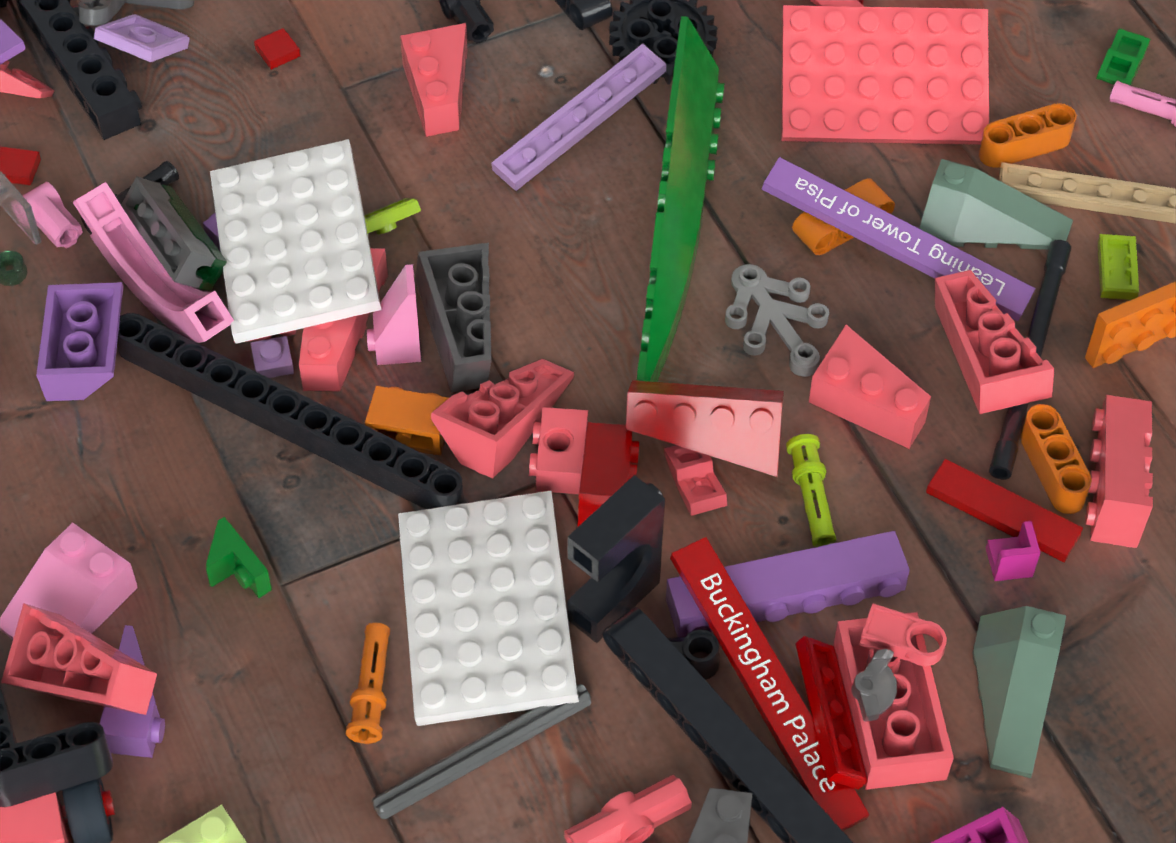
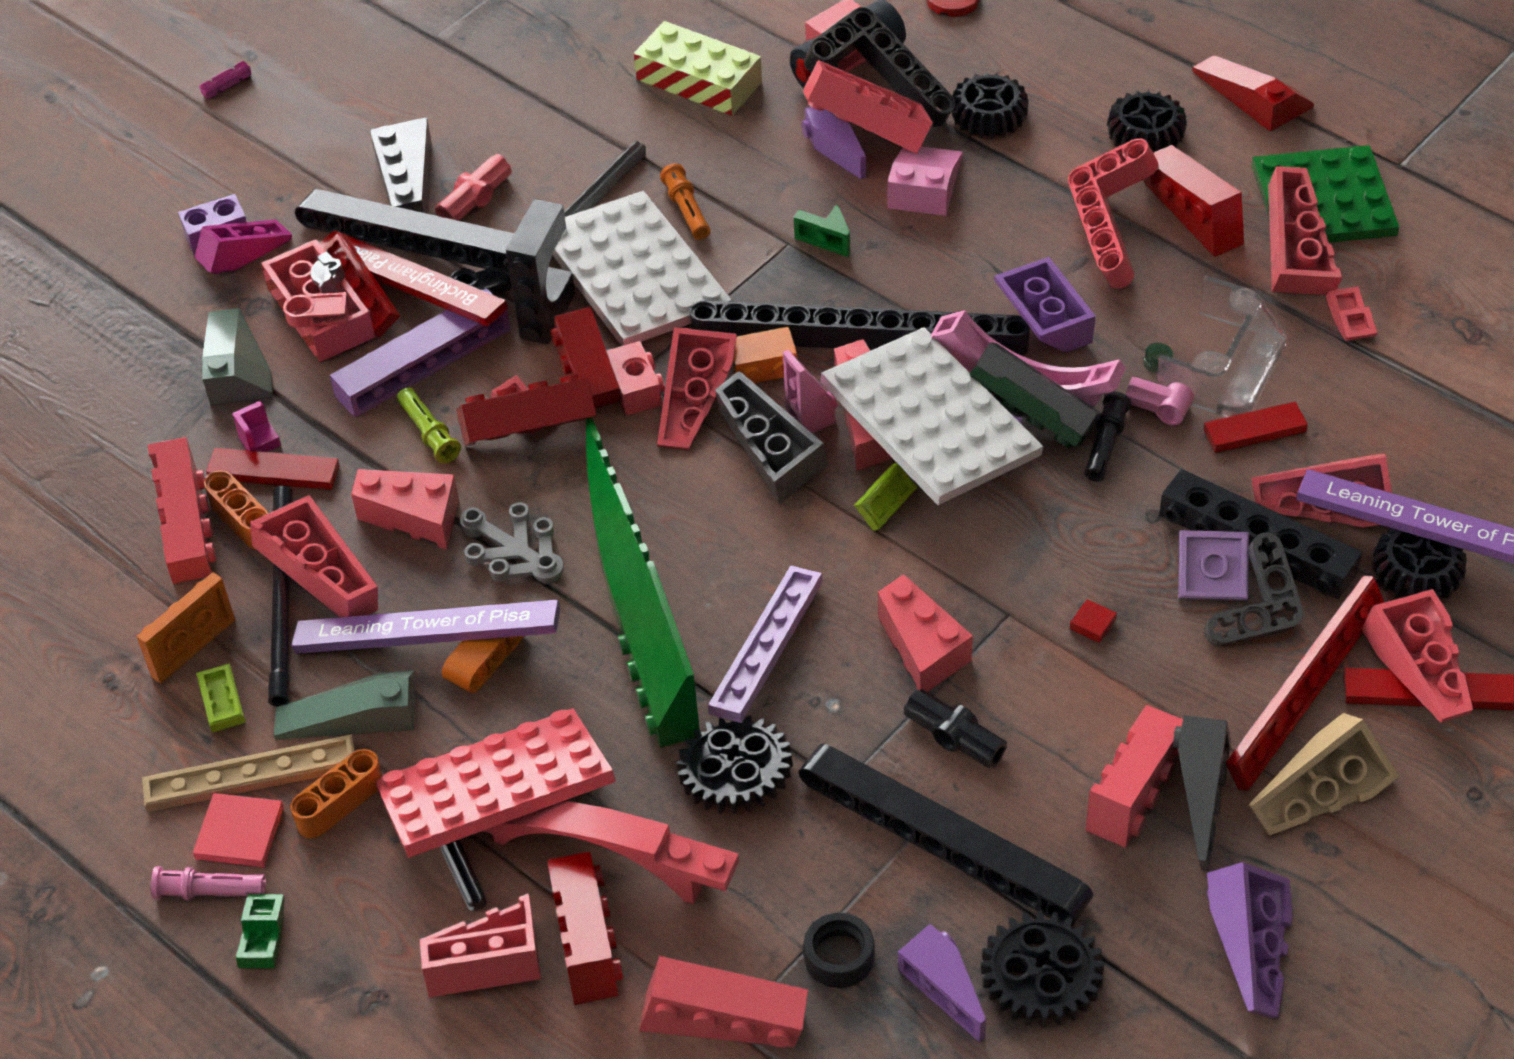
camera: 160 degrees right, 5 degrees down
(1125, 147) = (238, 830): none -> coral tile

